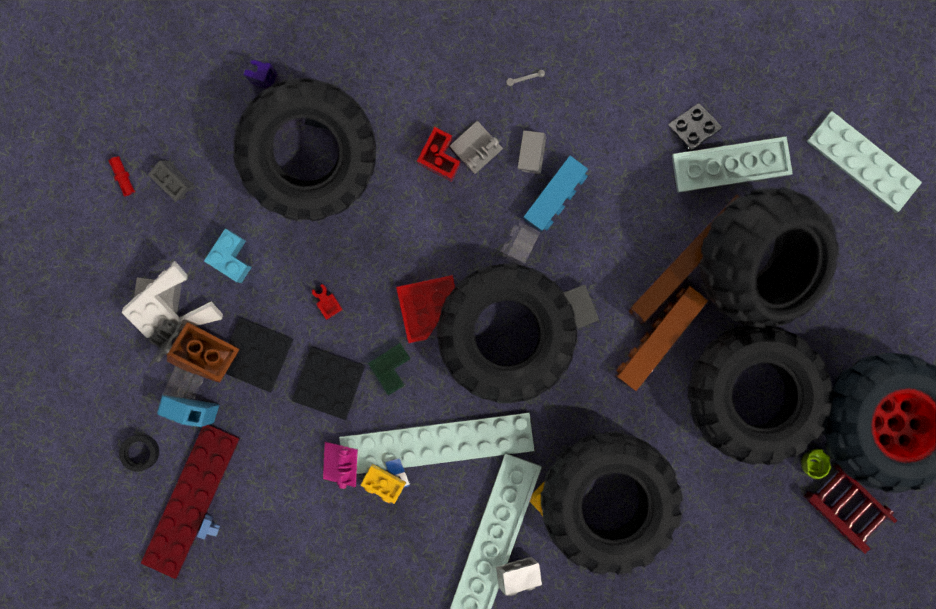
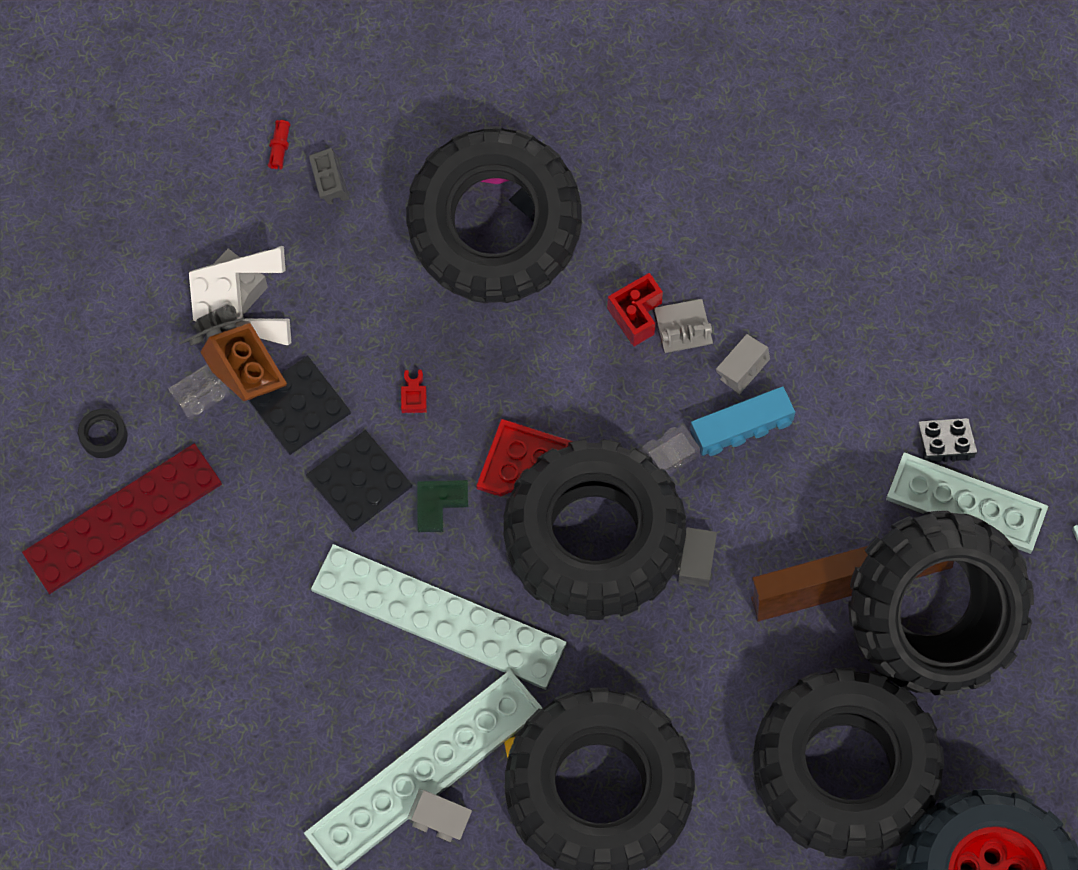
camera: 30 degrees right, 20 degrees down
(188, 411) = (189, 414): dark azure slope -> none
(208, 527) = (122, 554): medium blue tile -> none
(224, 256) = (335, 281): medium azure brick -> none
(263, 77) = (499, 118): dark purple hinge -> none
(340, 464) = (315, 571): dark pink hinge -> none
(383, 484) = (349, 619): yellow bracket -> none
(396, 468) = (372, 621): blue sticker -> none
(510, 81) = (764, 280): light grey hinge -> none
(661, 338) = (770, 645): dark orange brick -> none

